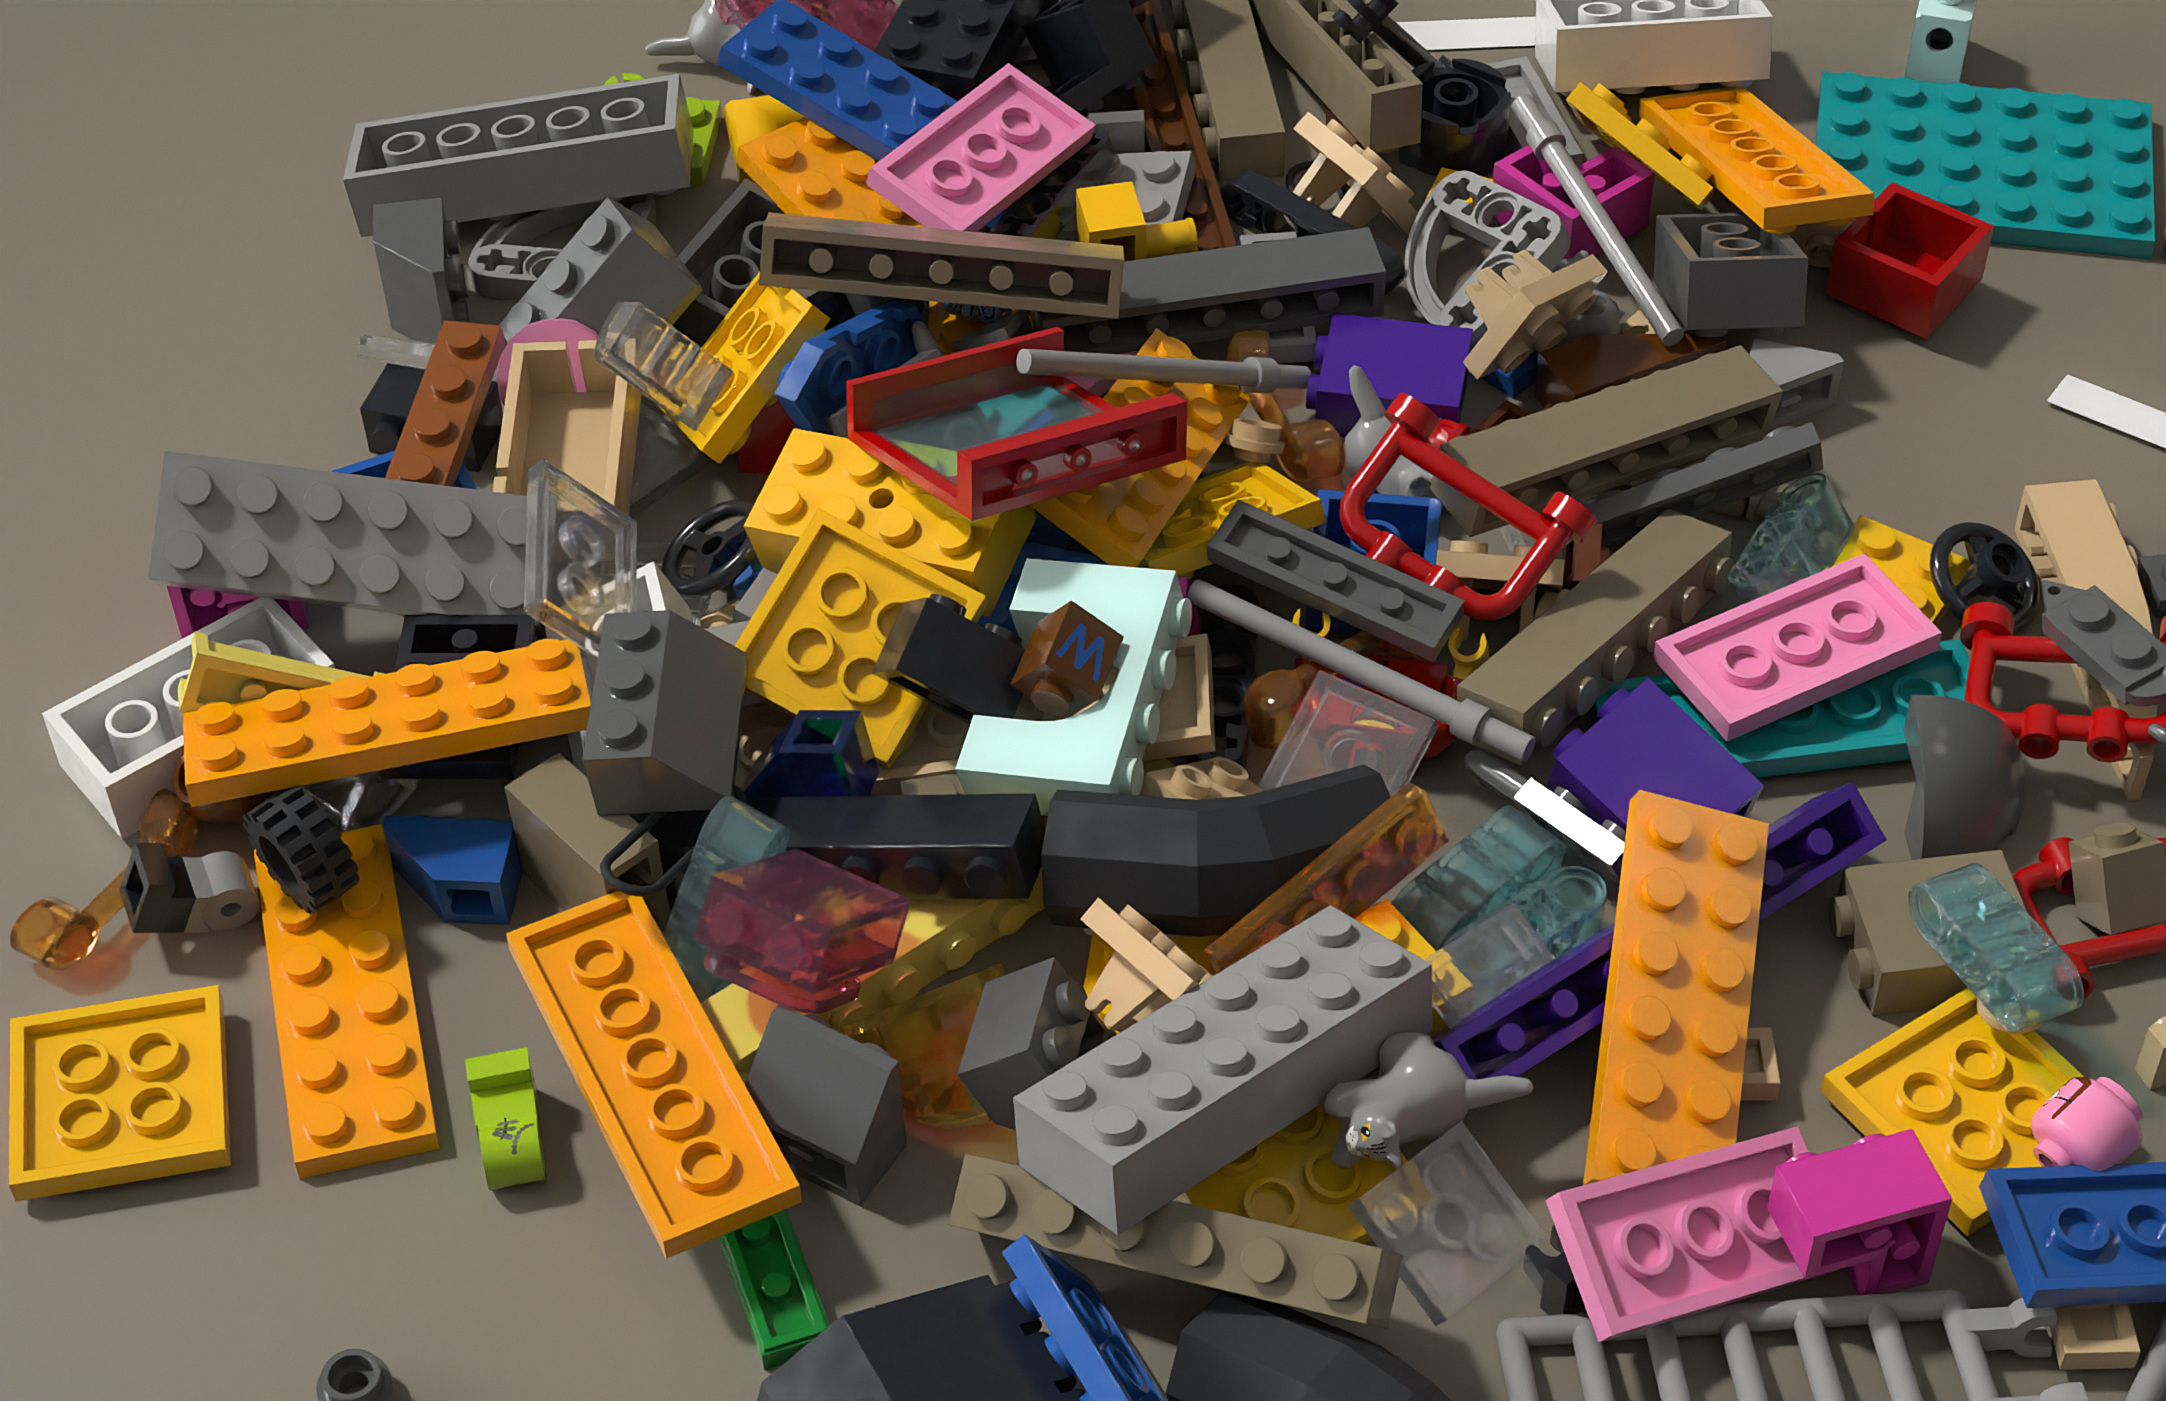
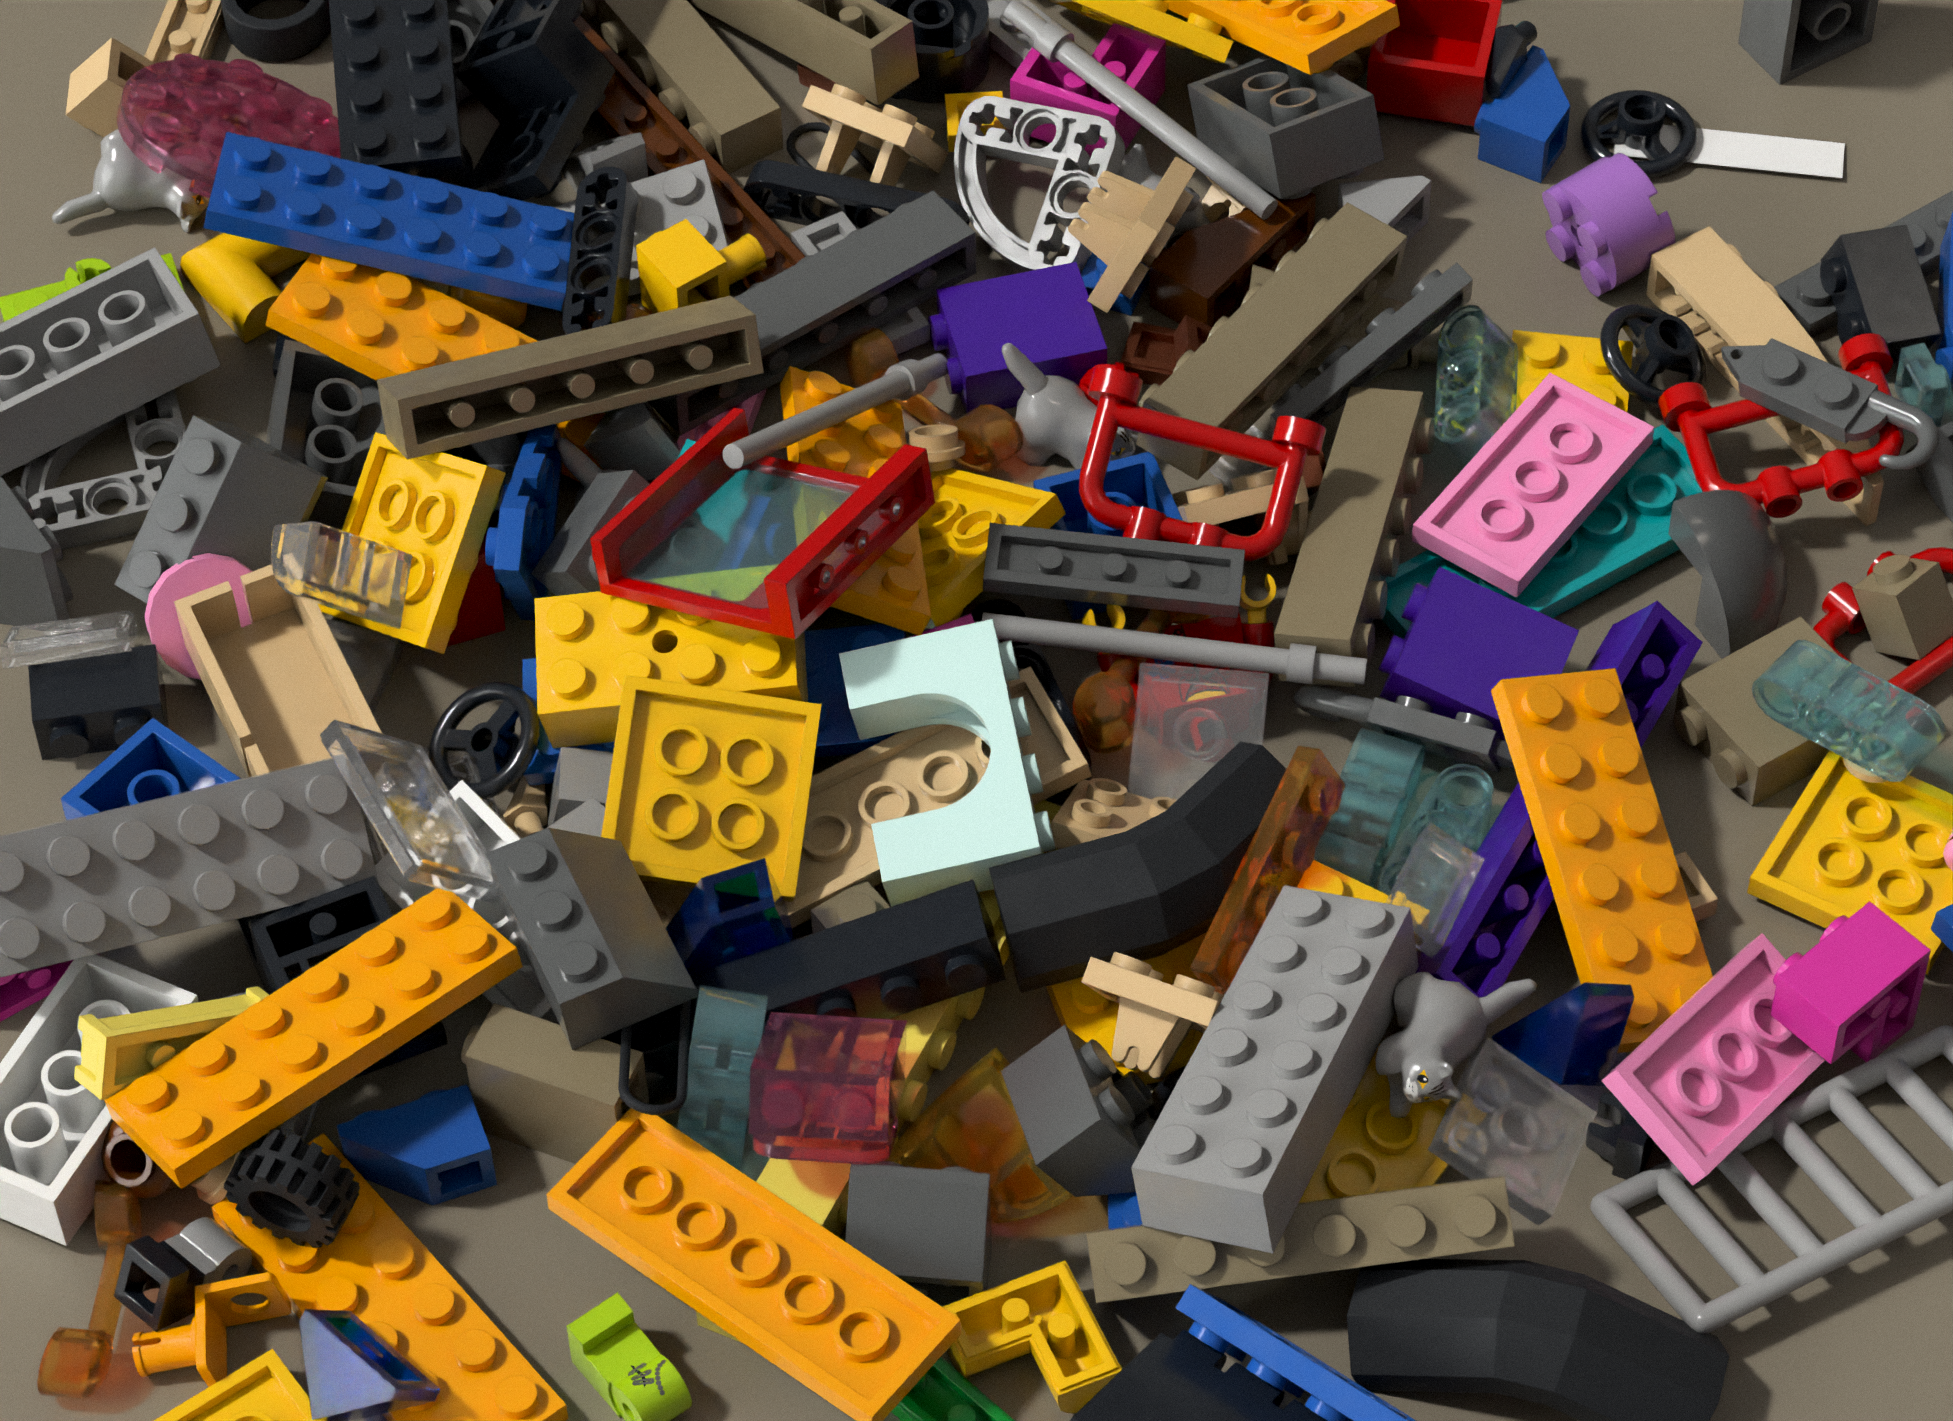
camera: 25 degrees left, 5 degrees up
(182, 949) = (205, 1339): none -> light orange bracket
(264, 1024) = (355, 1370): none -> clear blue slope
(447, 403) = (145, 695): dark orange plate -> none
(891, 1217) = (1042, 1317): none -> yellow brick
(952, 659) = (829, 778): black brick -> none
(981, 153) = (524, 239): bright pink plate -> none
(1067, 661) = (938, 742): reddish brown brick -> none
(1553, 1148) = (1574, 1035): none -> clear blue slope
(1969, 344) = (1527, 123): none -> blue slope
(1974, 276) = (1508, 55): none -> black bar
(1995, 445) = (1606, 222): none -> medium lavender brick
(2078, 380) = (1639, 127): none -> black piece

